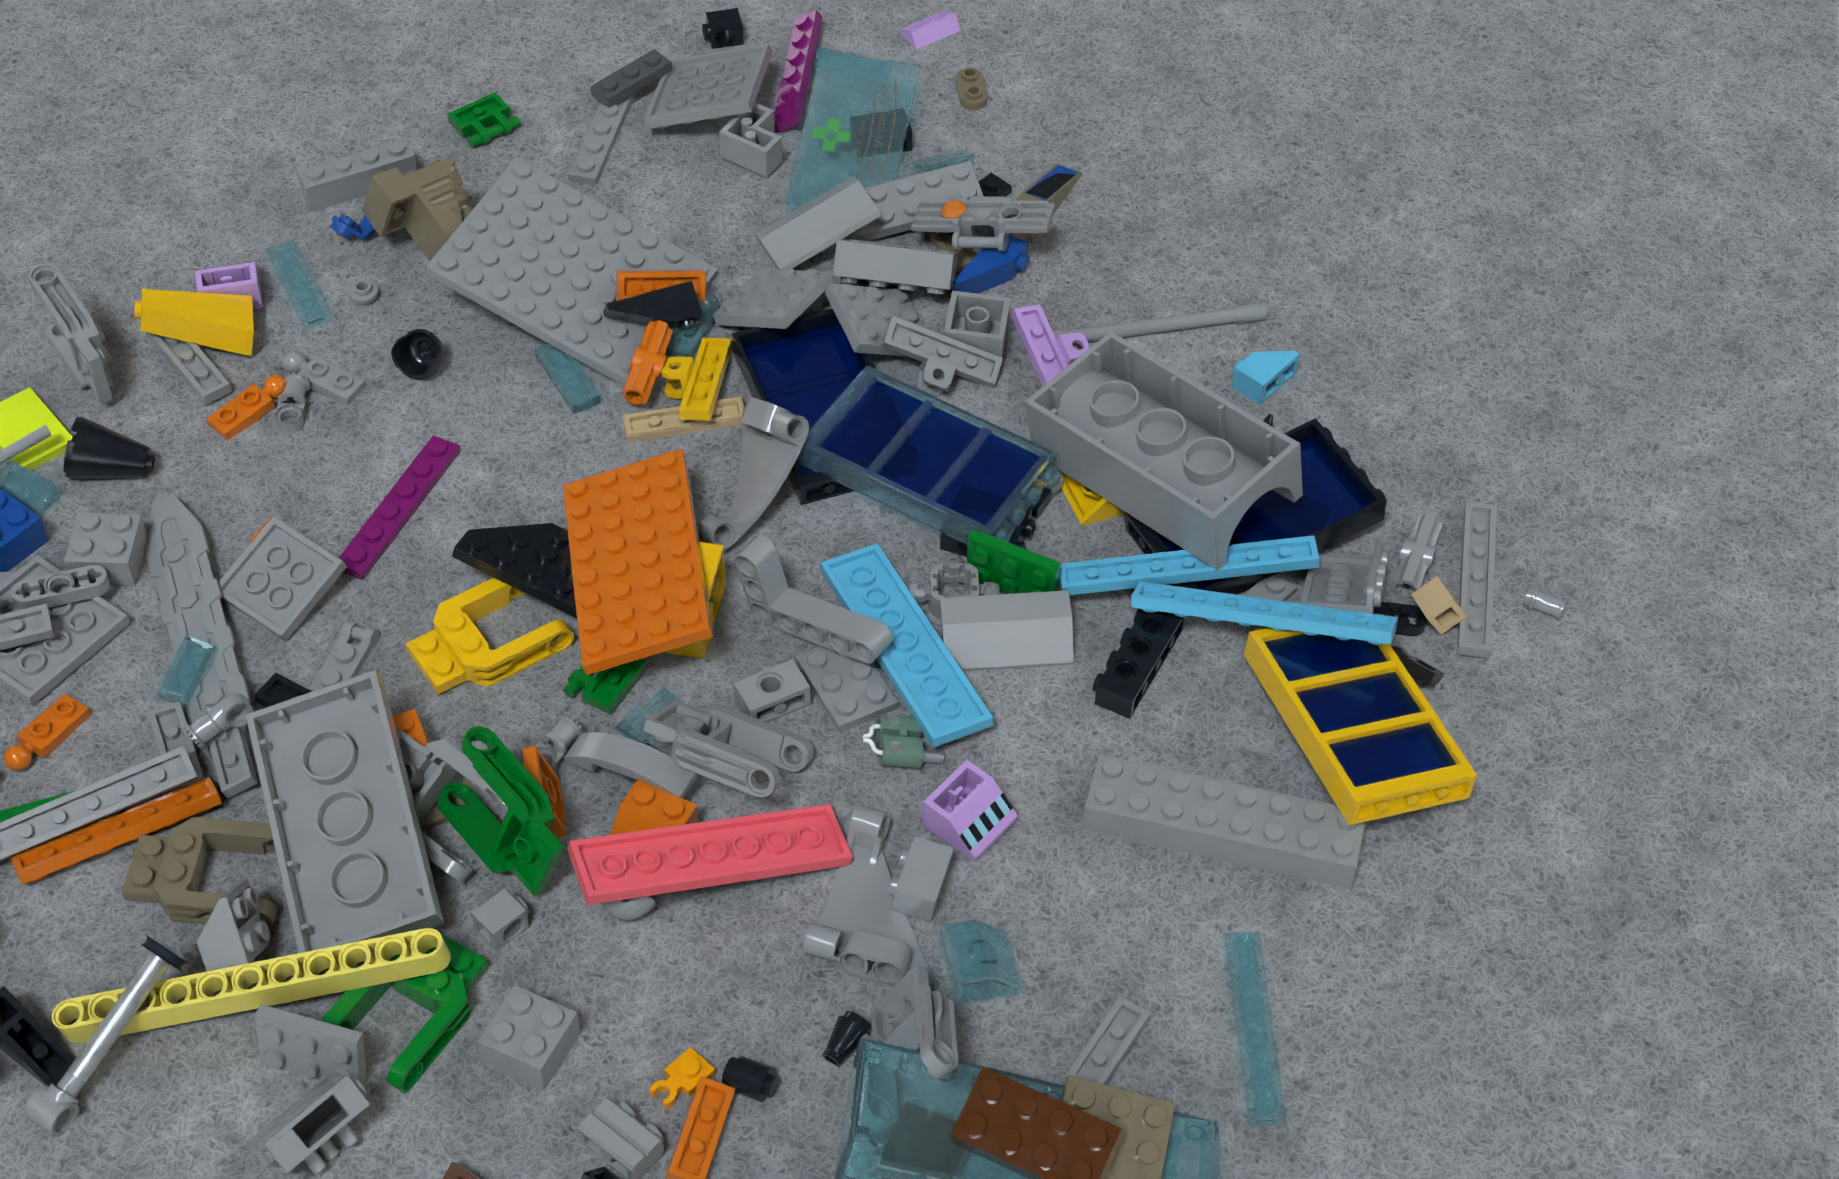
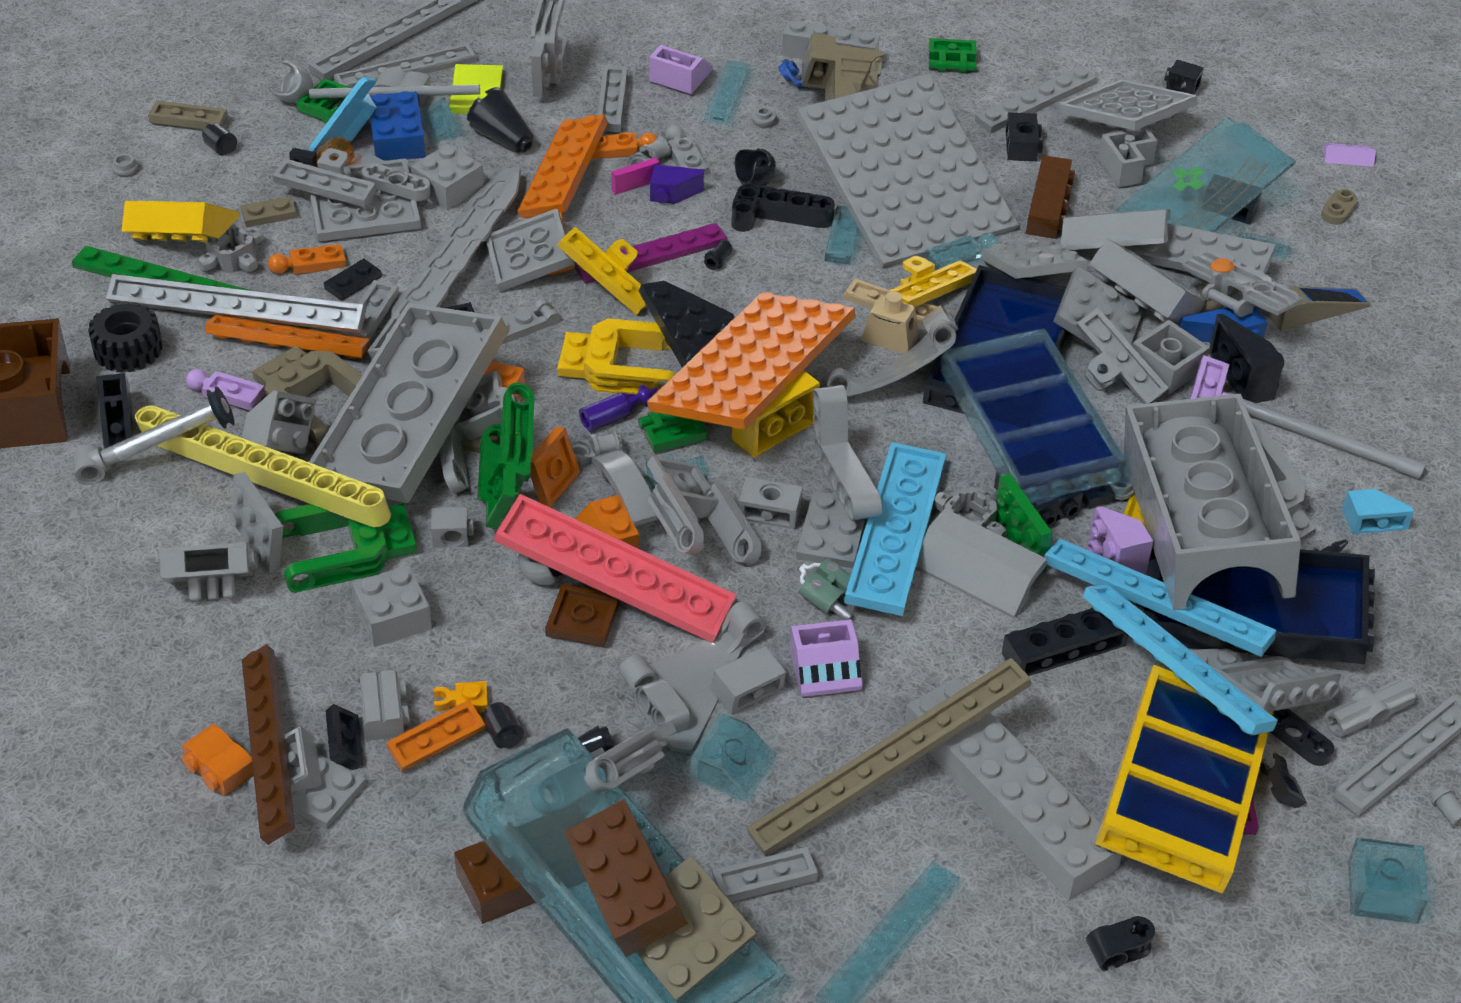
camera: 40 degrees right, 5 degrees down
(109, 929) = (236, 390): none -> lavender plate
(116, 724) = (352, 279): none -> black plate
(186, 671) = (418, 269): clear light blue slope -> none
(199, 318) = (639, 76): yellow slope -> none
(217, 465) = (563, 166): none -> orange plate
(217, 719) = (395, 305): light grey connector -> none
(302, 432) = (633, 176): none -> dark pink tile
(350, 418) = (675, 183): none -> dark purple slope
(387, 549) = (606, 267): none -> yellow plate
(469, 474) = (715, 258): none -> black pin
(480, 379) = (780, 205): none -> black beam
(530, 693) = (613, 408): none -> dark purple wheel
(631, 78) = (1079, 75): dark grey plate -> none
(636, 173) = (1023, 137): none -> black brick
(638, 282) = (956, 207): orange plate -> none
(647, 362) = (899, 249): orange piece -> none
(672, 305) = (945, 222): black slope -> none
(708, 442) = (891, 324): none -> tan torso
(712, 921) = (582, 615): none -> reddish brown plate
(720, 223) = (1050, 197): none -> reddish brown brick
(797, 71) = (1238, 112): magenta plate -> none
(994, 186) = (1285, 276): black plate -> none
(1054, 285) = (1252, 360): none -> black slope
(1107, 533) = (1120, 539): none -> lavender slope
(1119, 868) = (888, 757): none -> dark tan plate
(1430, 895) = (1119, 943): none -> black piece
(1439, 605) = (1347, 749): tan brick -> none
(1565, 699) = (1387, 880): none -> clear light blue brick

